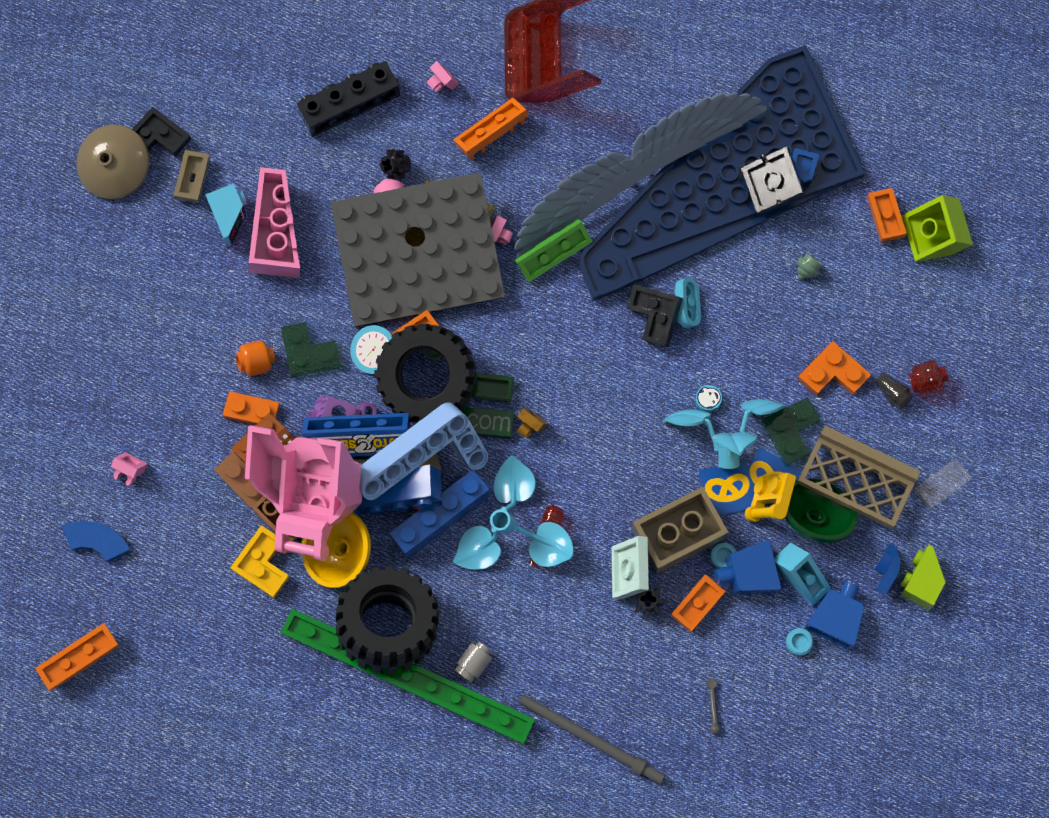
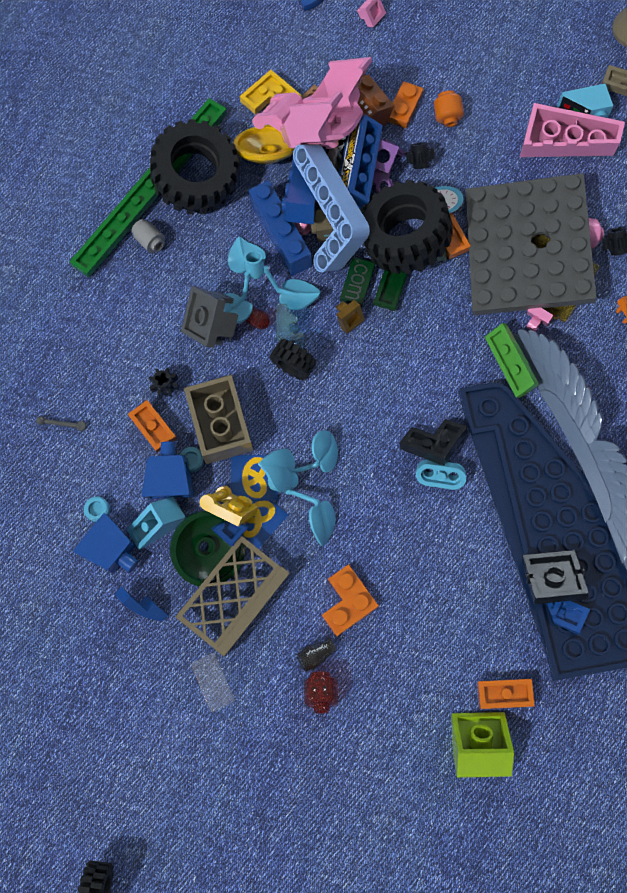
camera: 105 degrees right, 0 degrees up
(308, 358) = (446, 149): clear green plate -> none
(322, 379) = (420, 155): none -> black gear
(556, 486) = (285, 326): none -> clear light blue hand
(570, 562) = (206, 317): none -> dark grey panel
(597, 467) = (293, 359): none -> black tyre
(630, 567) = (193, 368): light aqua tile -> none
(637, 765) = (28, 350): dark grey bar -> none
(708, 398) = (343, 476): tile -> none
(784, 428) = (297, 540): clear green plate -> none
(800, 492) = (229, 532): none -> blue tile
(808, 267) = (461, 600): sand green plate -> none
(925, 581) = (119, 637): lime slope -> none

